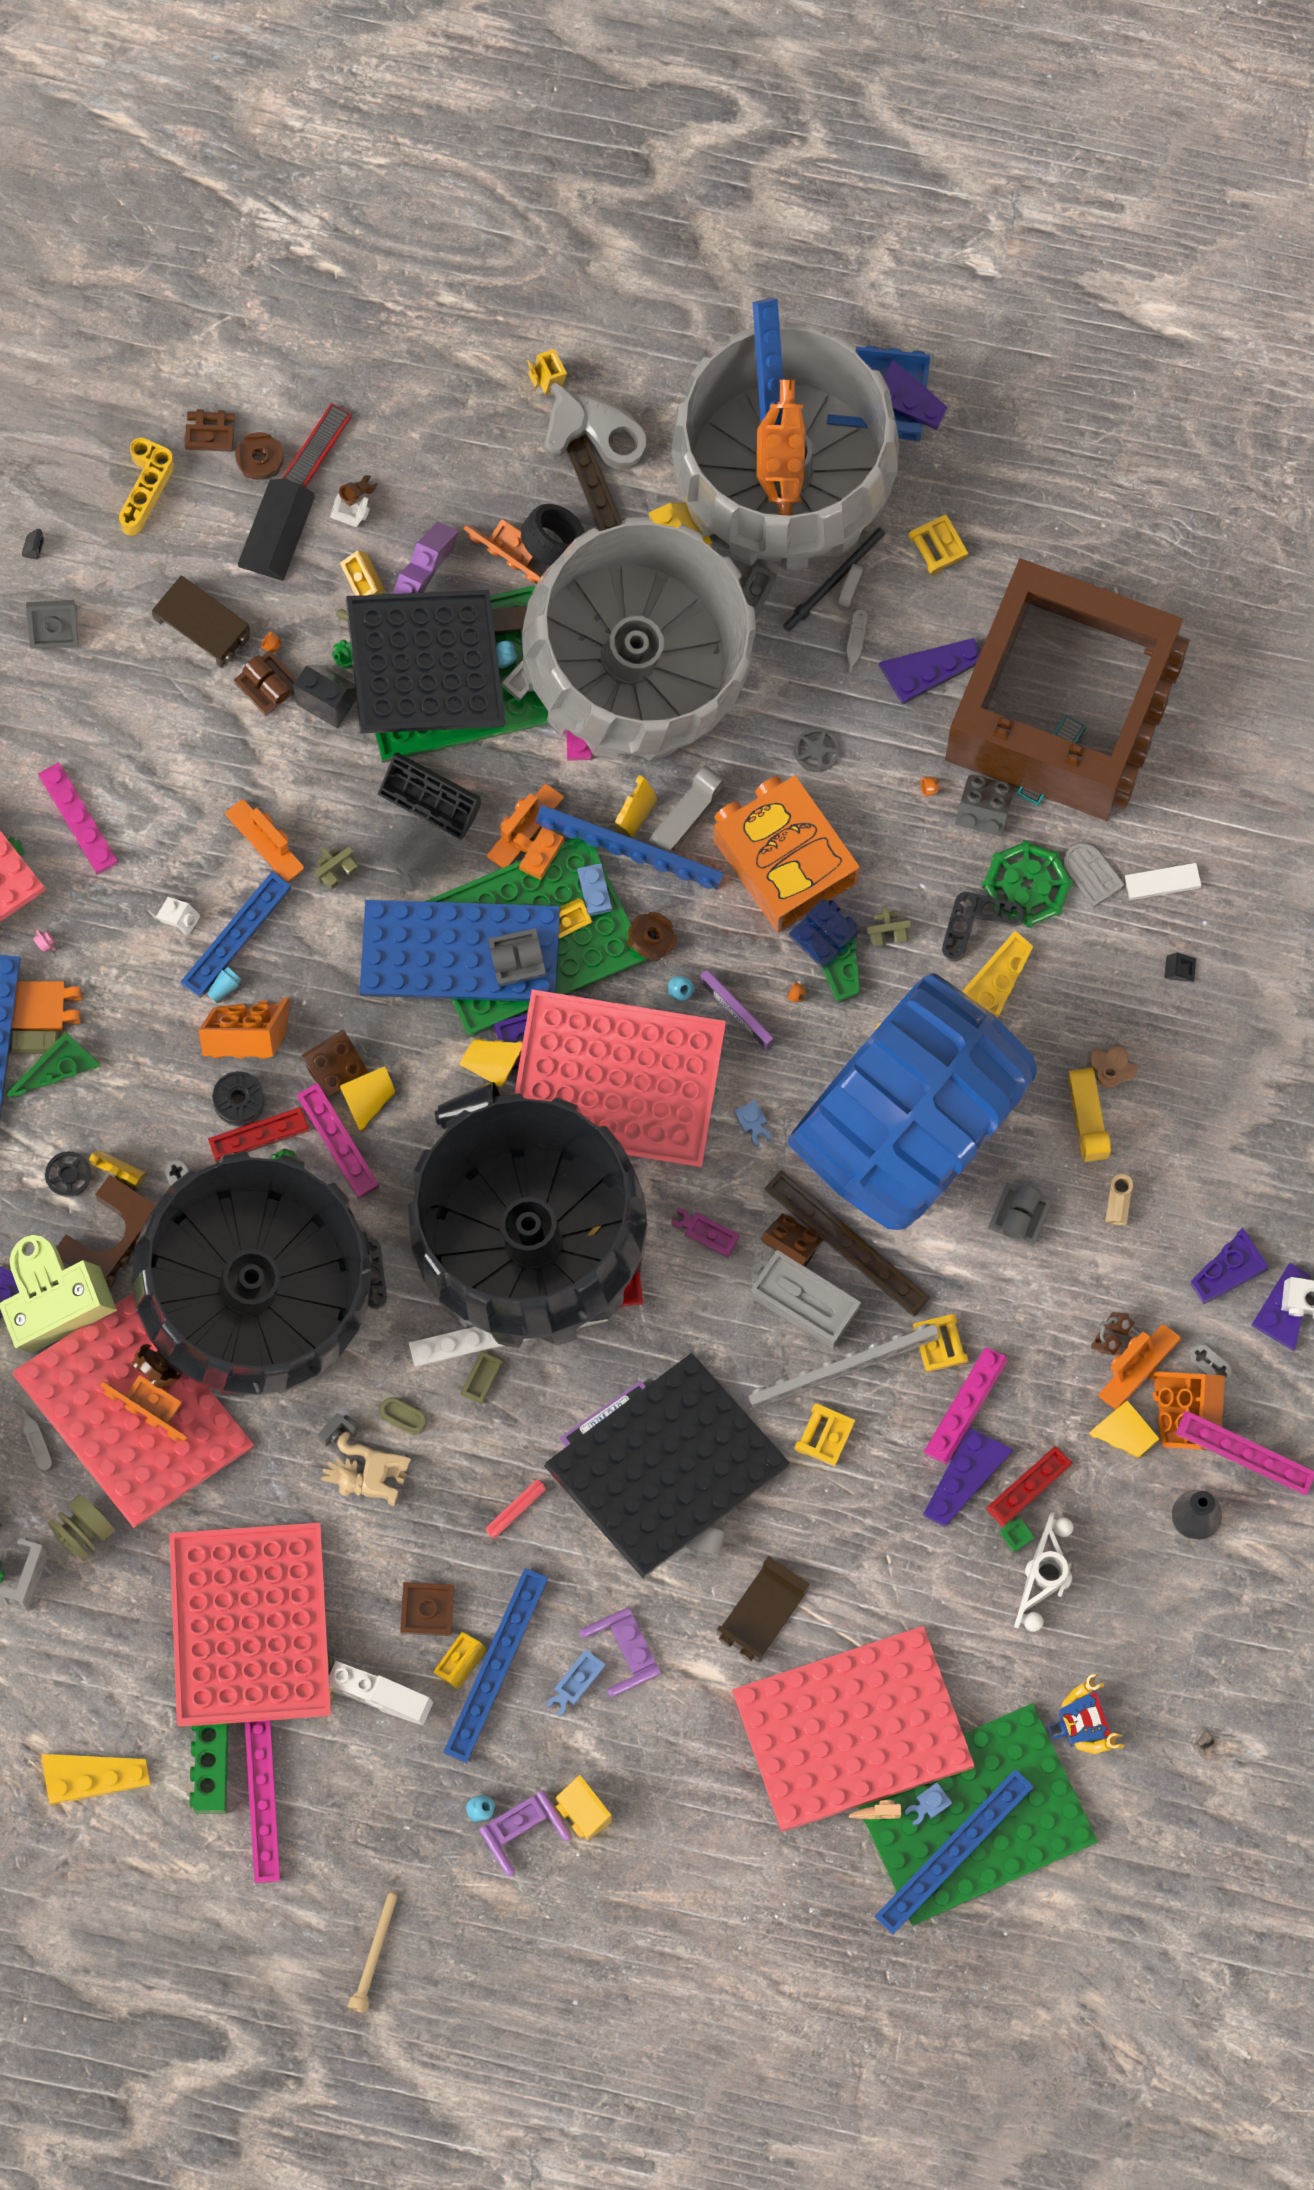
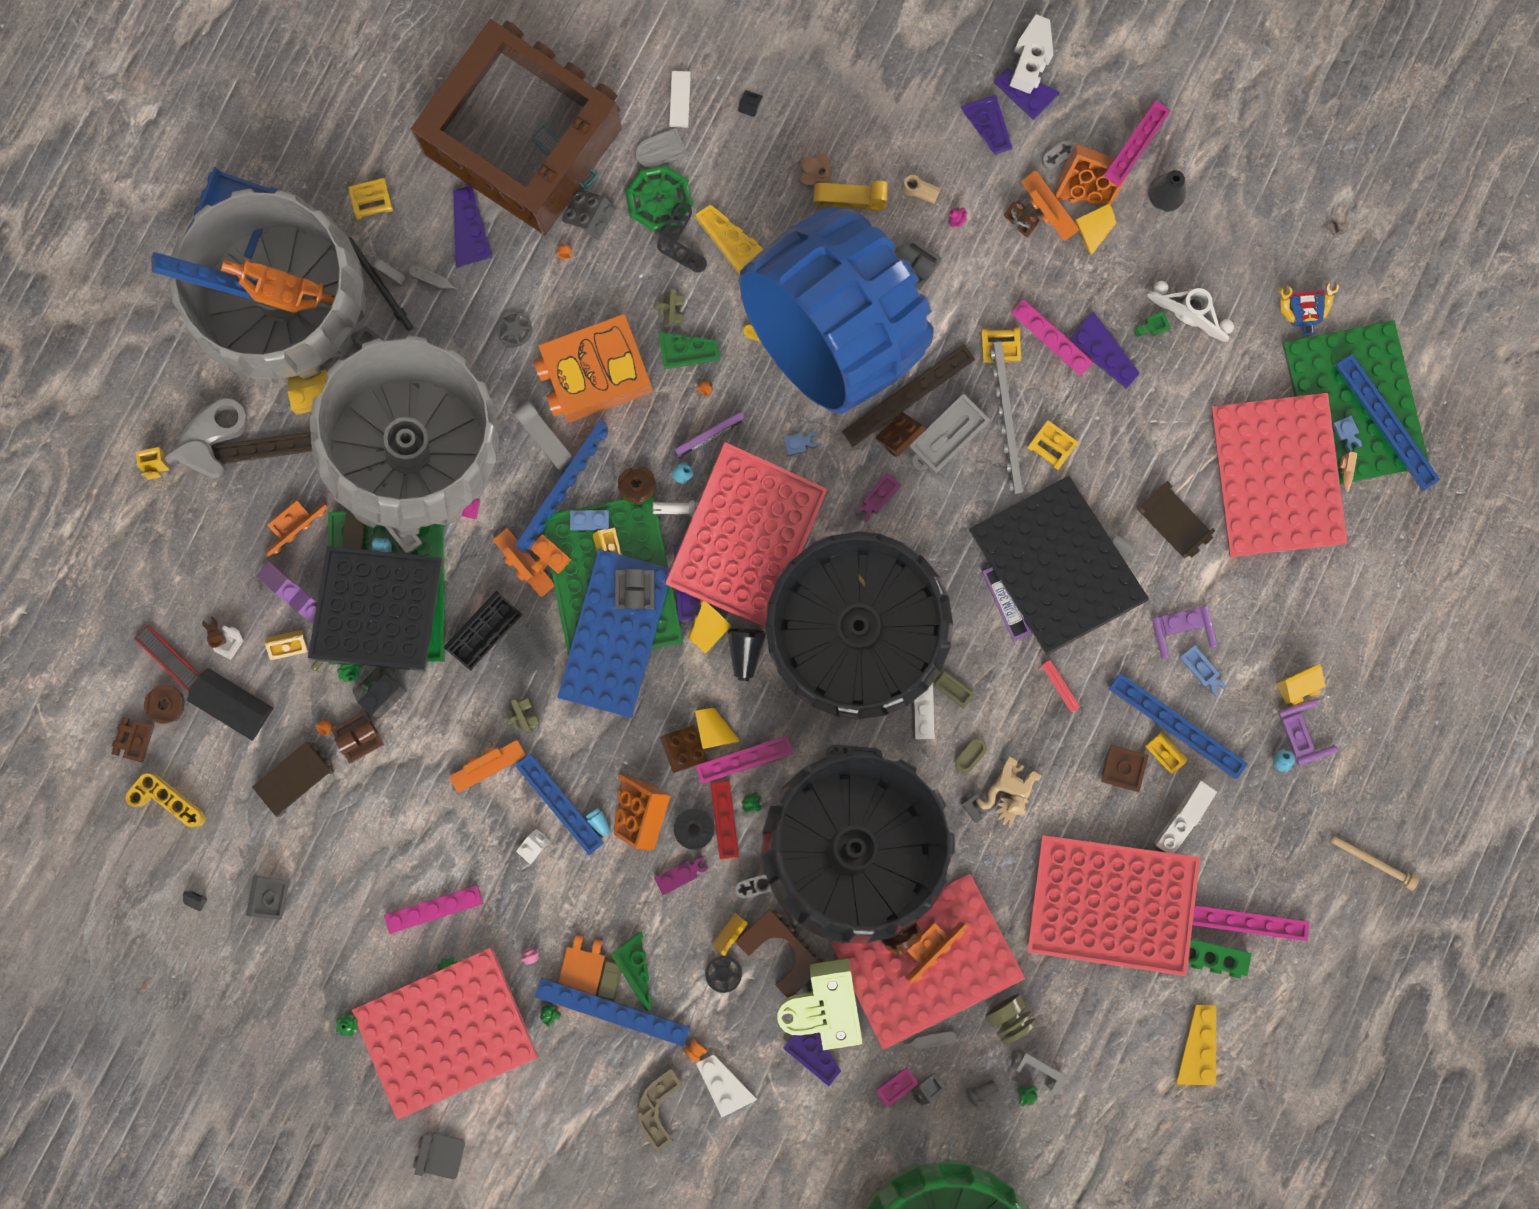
camera: 75 degrees left, 10 degrees up
(177, 1095) = (678, 876): none -> magenta plate
(556, 519) = (287, 476): black tyre -> none
(632, 983) = (674, 508): none -> white pin
(636, 808) = (531, 474): yellow slope -> none
(824, 932) = (665, 354): clear blue plate -> none
(912, 398) = (257, 179): dark purple wing -> none
(1029, 1486) = (1124, 305): red tile -> none
(1094, 1253) = (957, 217): none -> dark pink plant

